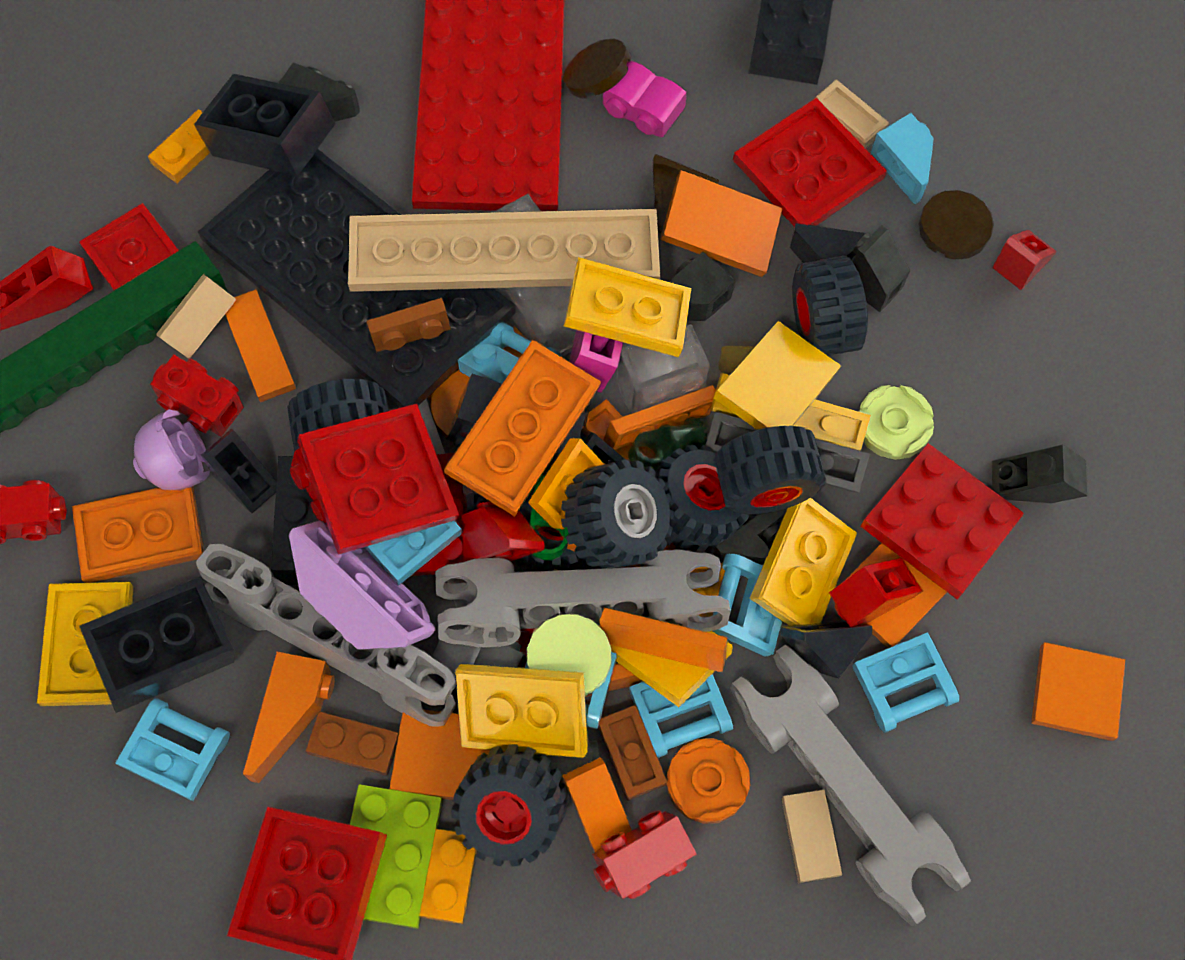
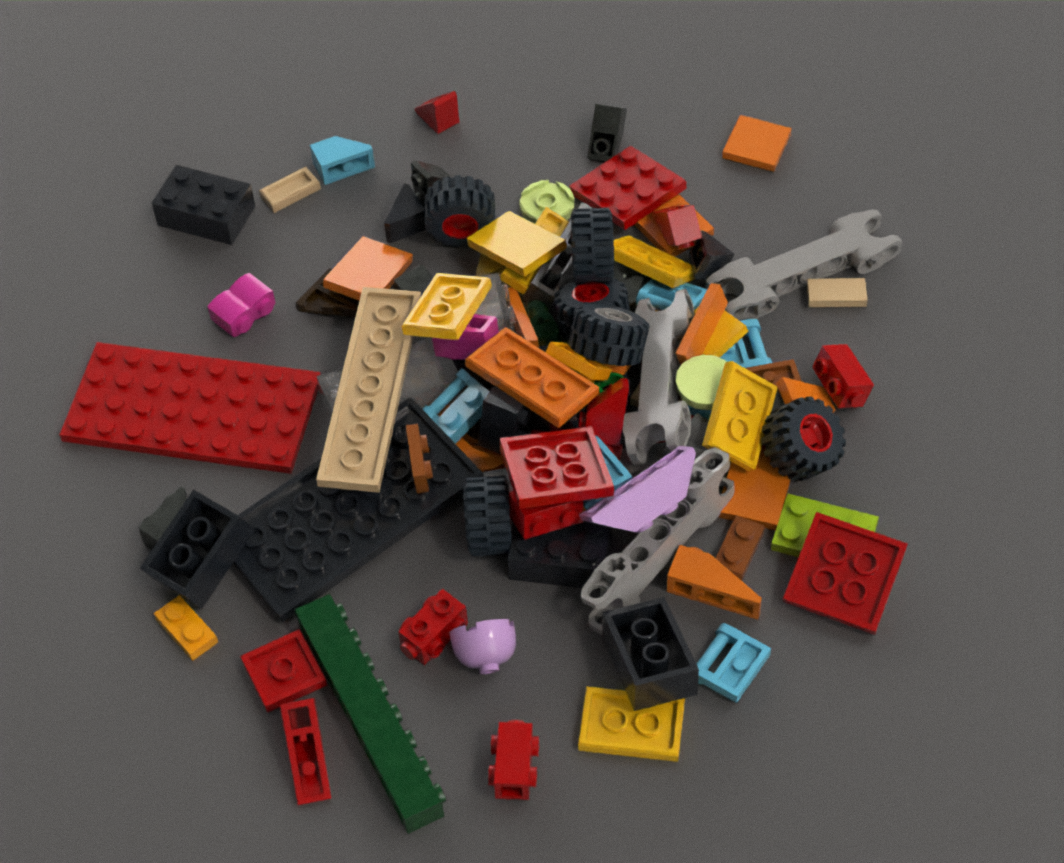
camera: 75 degrees left, 15 degrees down
(136, 533) = (543, 682): orange tile -> none
(196, 316) = (363, 619): tan tile -> none
(239, 471) = (507, 599): black slope -> none
(259, 347) = (393, 586): orange tile -> none
(448, 878) = (844, 494): light orange plate -> none
(597, 68) = (206, 327): dark brown tile -> none
(708, 781) = (794, 340): orange tile -> none
(809, 165) = (329, 216): red plate -> none
(902, 668) = (731, 229): medium azure plate -> none
(956, 224) = (400, 144): dark brown tile -> none

